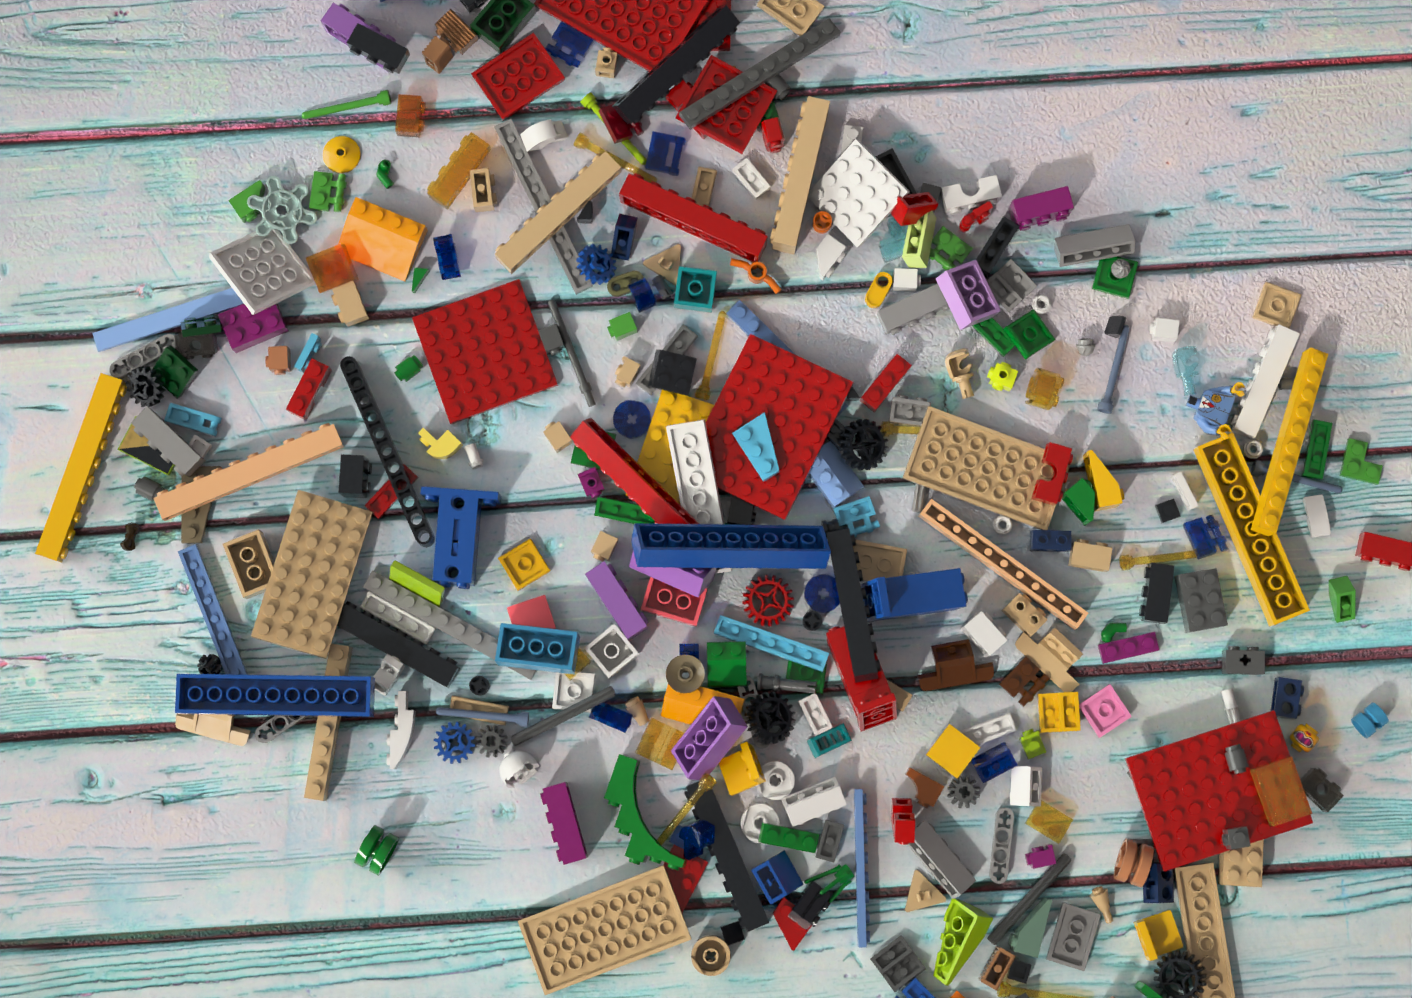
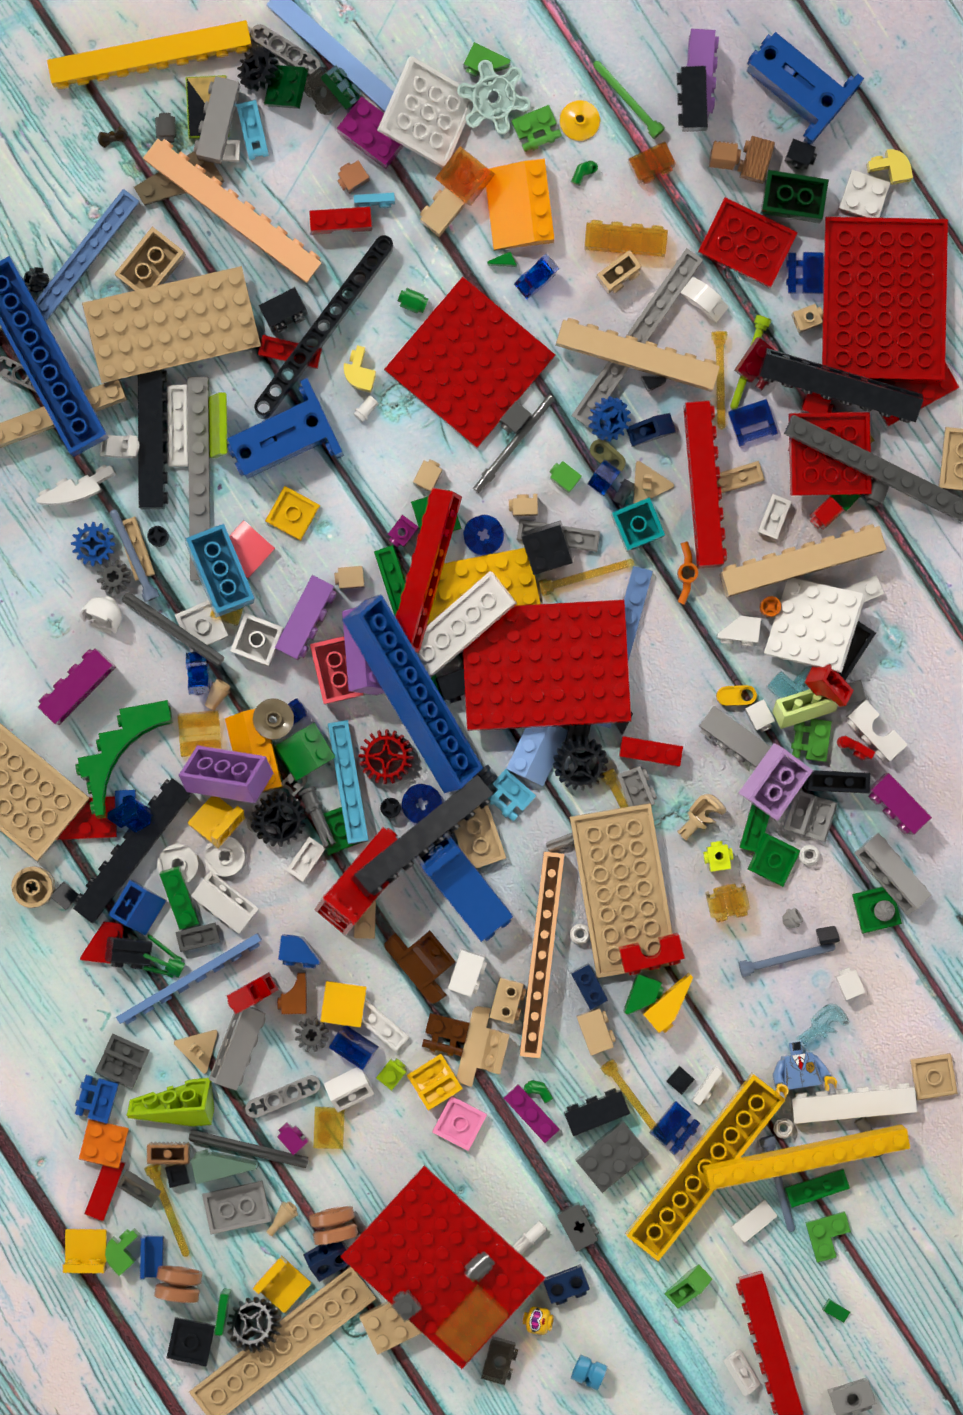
camera: 60 degrees right, 5 degrees up
(706, 783) = (183, 794): clear yellow piece -> none
(758, 446) = (521, 665): medium azure wing -> none
(814, 747) = (276, 873): teal slope -> none
(887, 763) = (297, 949): none -> blue slope

